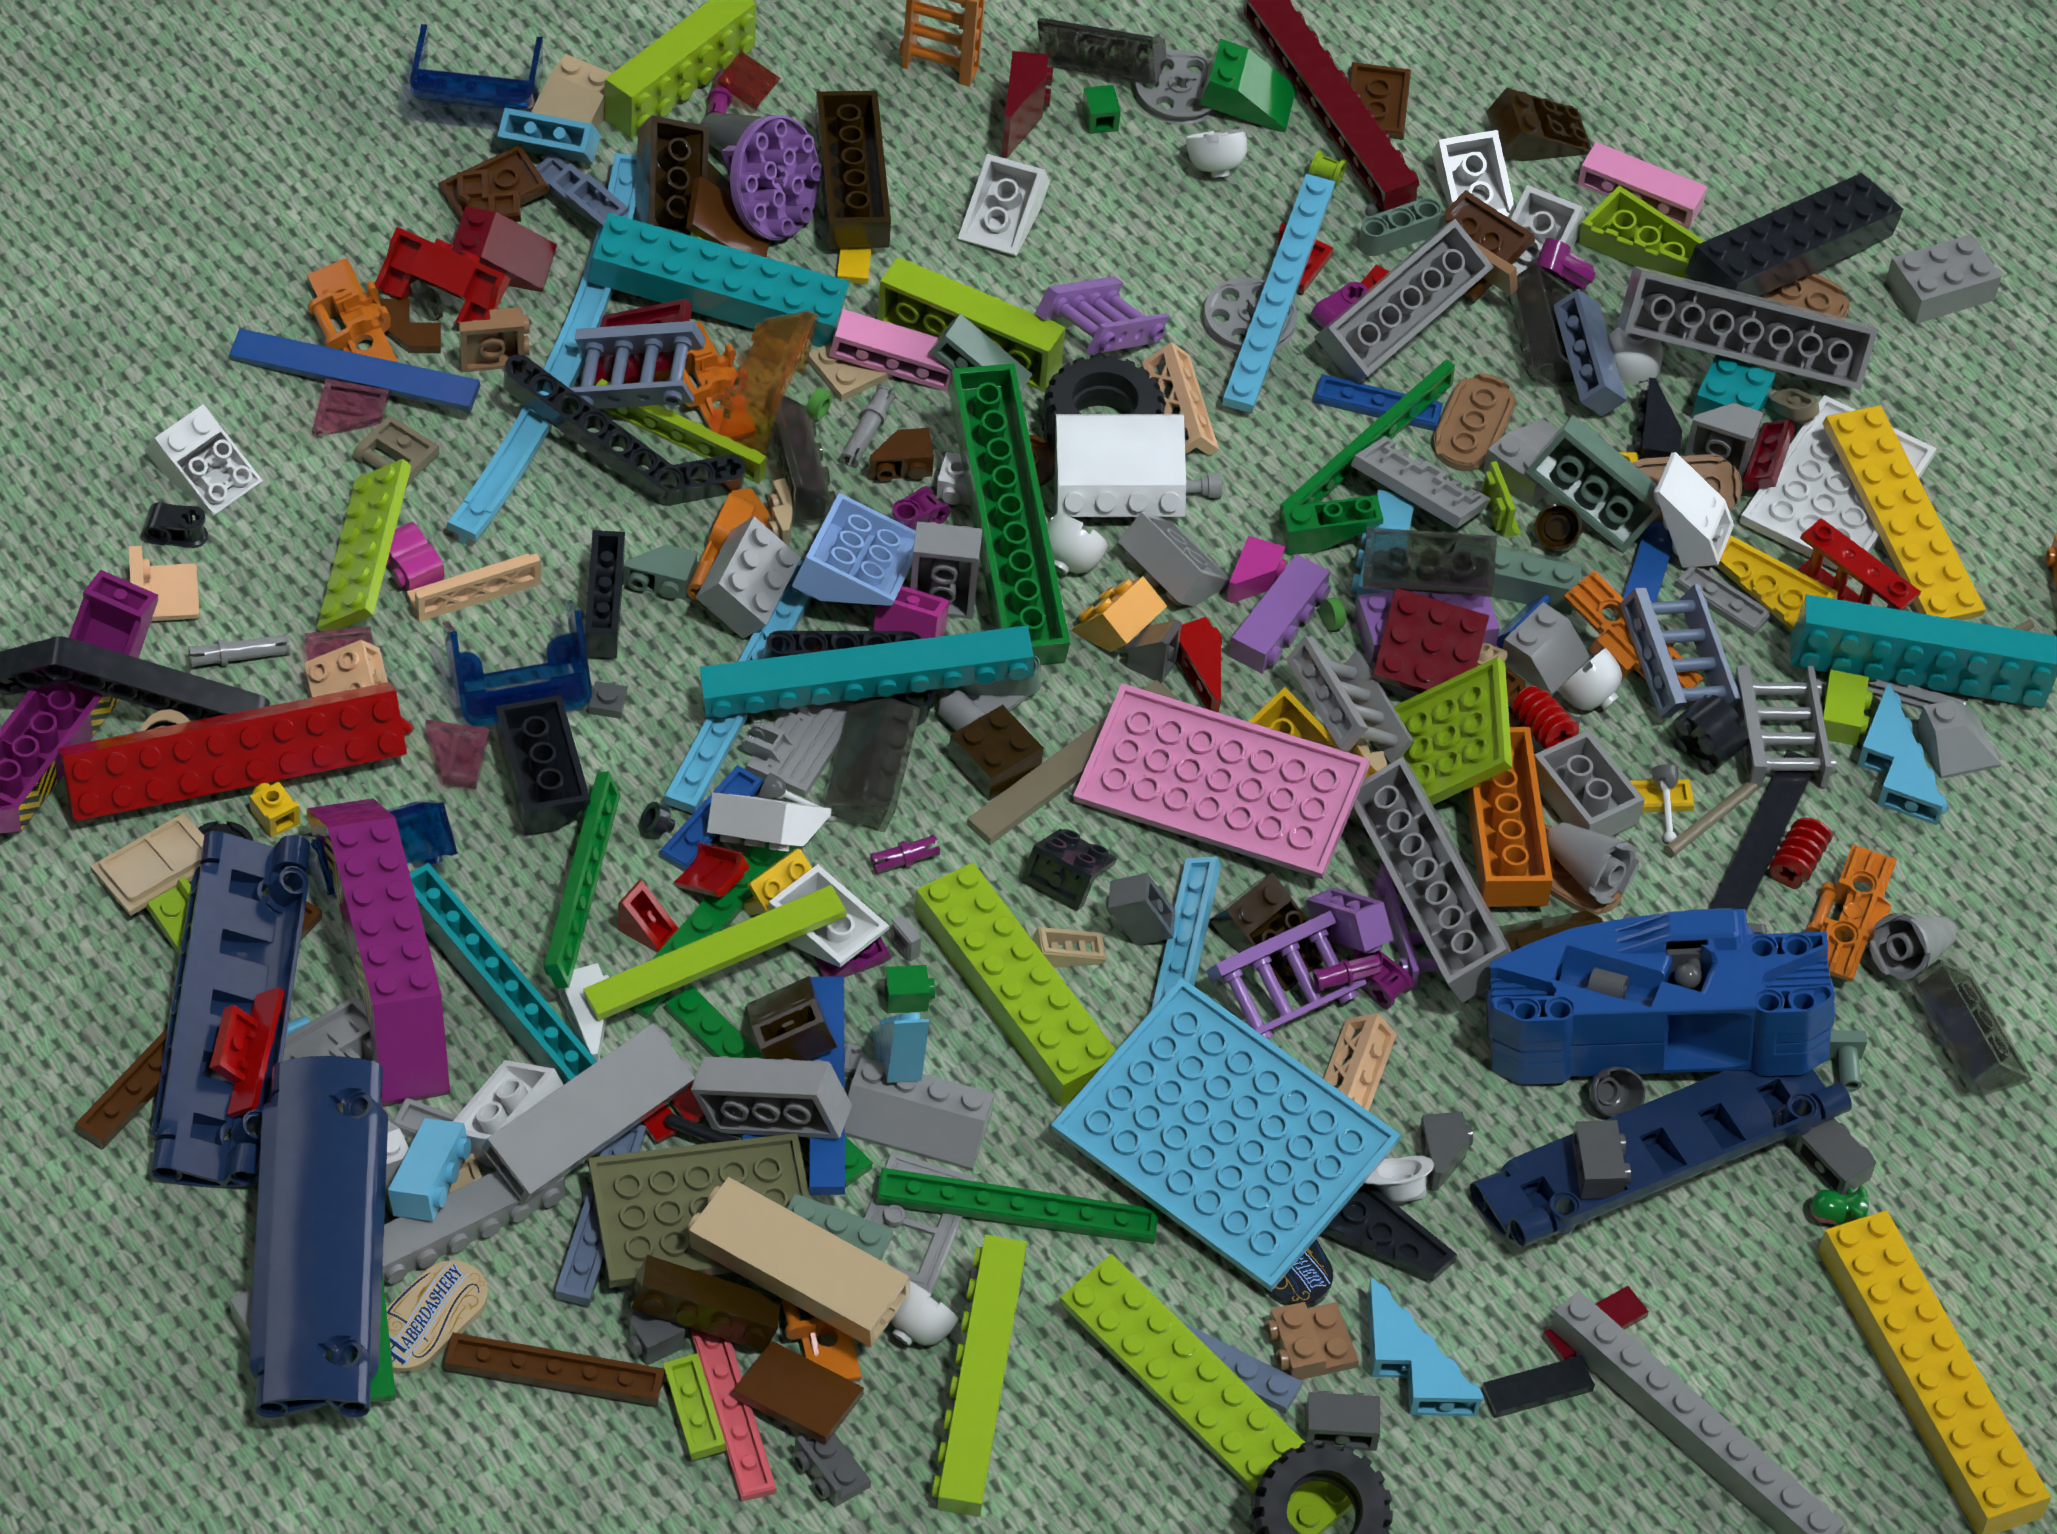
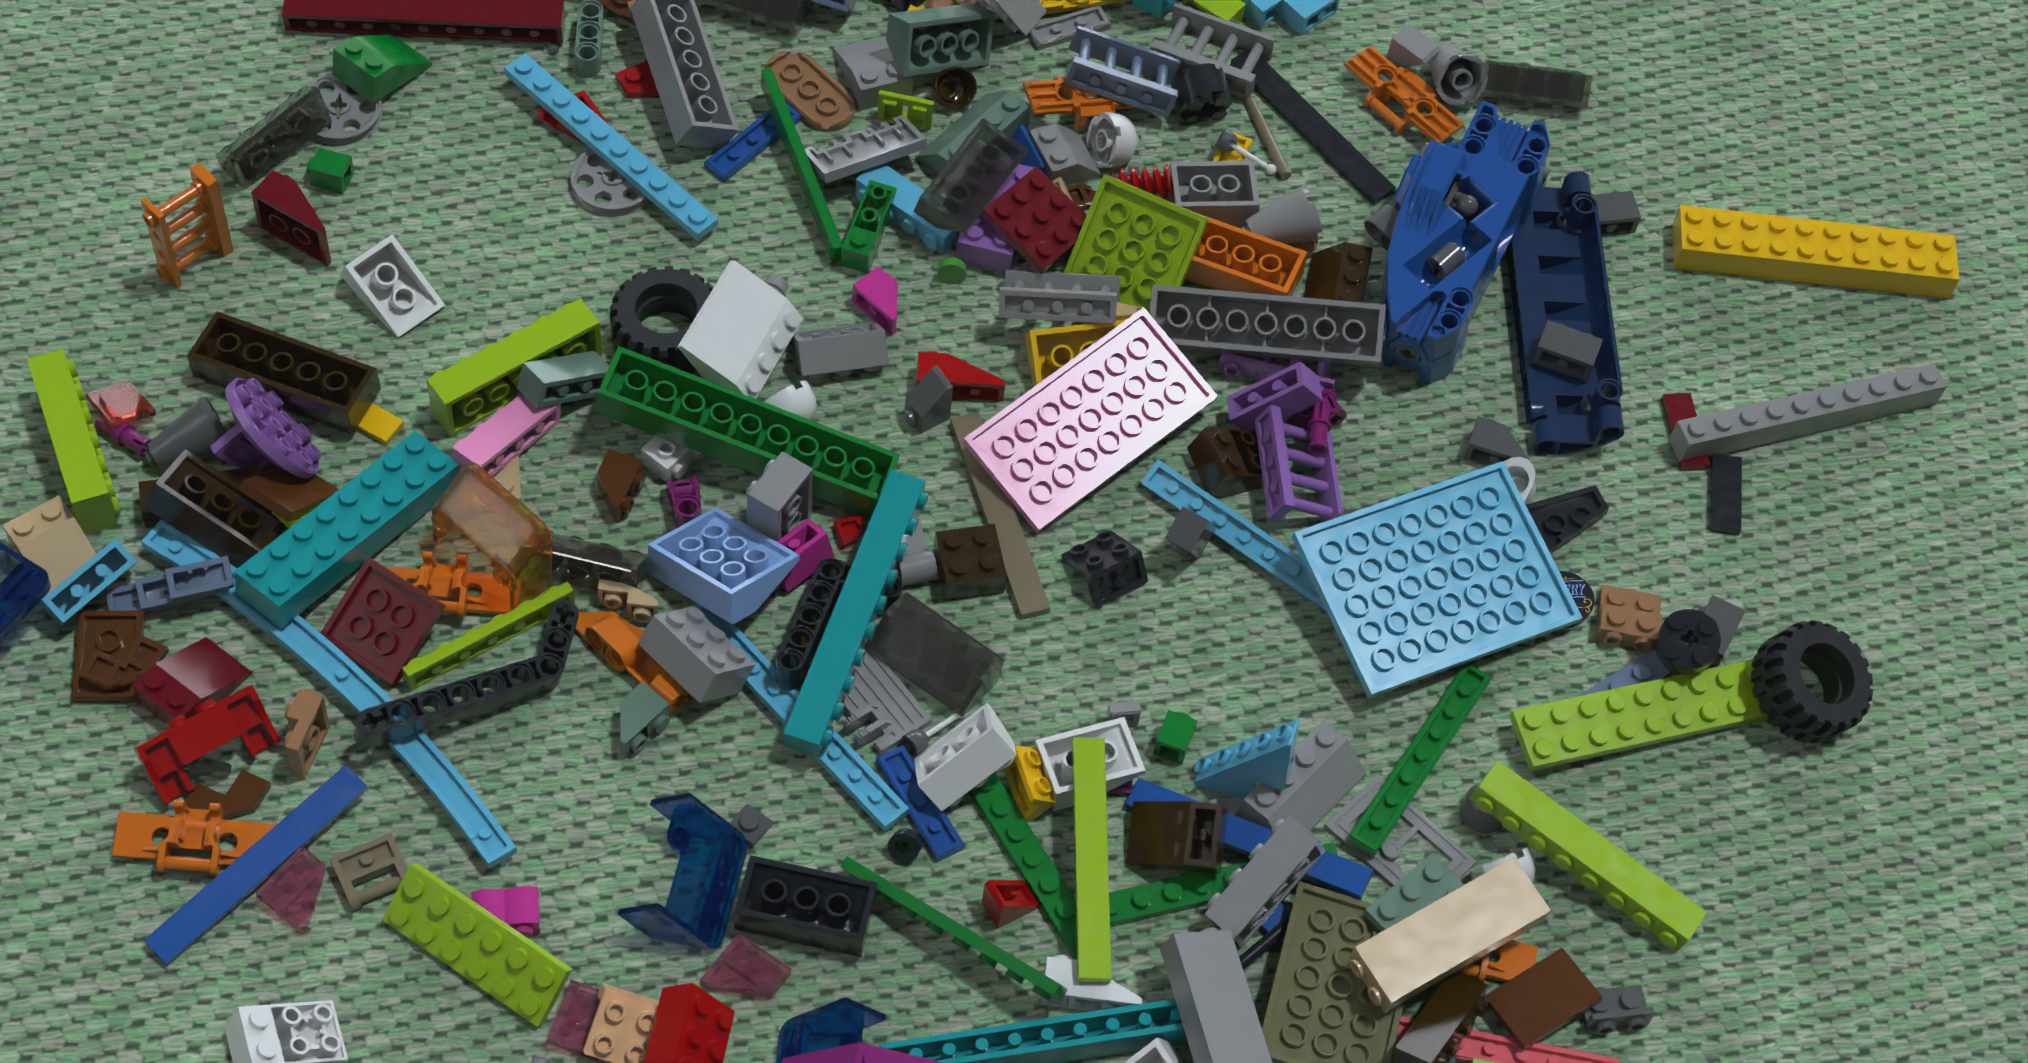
camera: 65 degrees left, 5 degrees up
(475, 586) = (564, 876): light nougat fence -> none
(604, 593) = (637, 768): black brick -> none
(631, 340) = (407, 602): sand blue fence -> none
(713, 871) = (975, 832): red piece -> none
(872, 417) = (559, 486): light grey pin -> none
(905, 854) = (1034, 676): magenta pin -> none
(1014, 981) = (1209, 656): lime brick -> none
(1067, 956) = (1177, 622): tan slope -> none
(1102, 314) = (573, 270): medium lavender fence -> none
(1120, 614) = (879, 409): light orange slope -> none
(1186, 390) = (666, 255): light nougat fence -> none
(1217, 150) = (434, 113): white cylinder -> none
(1280, 614) = (934, 304): medium lavender brick -> none
(1292, 1380) = (1703, 634): none -> black brick
(1327, 167) = (496, 54): lime bush -> none
(1335, 304) = (650, 115): magenta piece -> none
(1368, 1061) = (1392, 455): light nougat fence -> none
(1407, 1352) = (1665, 560): medium azure slope -> none
(1616, 1091) = (1495, 313): dark grey hair -> none
(1651, 561) = (1019, 57): blue tile -> none
(1800, 852) = (1331, 97): red piece -> none
(1837, 1208) = (1652, 232): green animal -> none
(1916, 889) = (1411, 48): none -> light grey slope

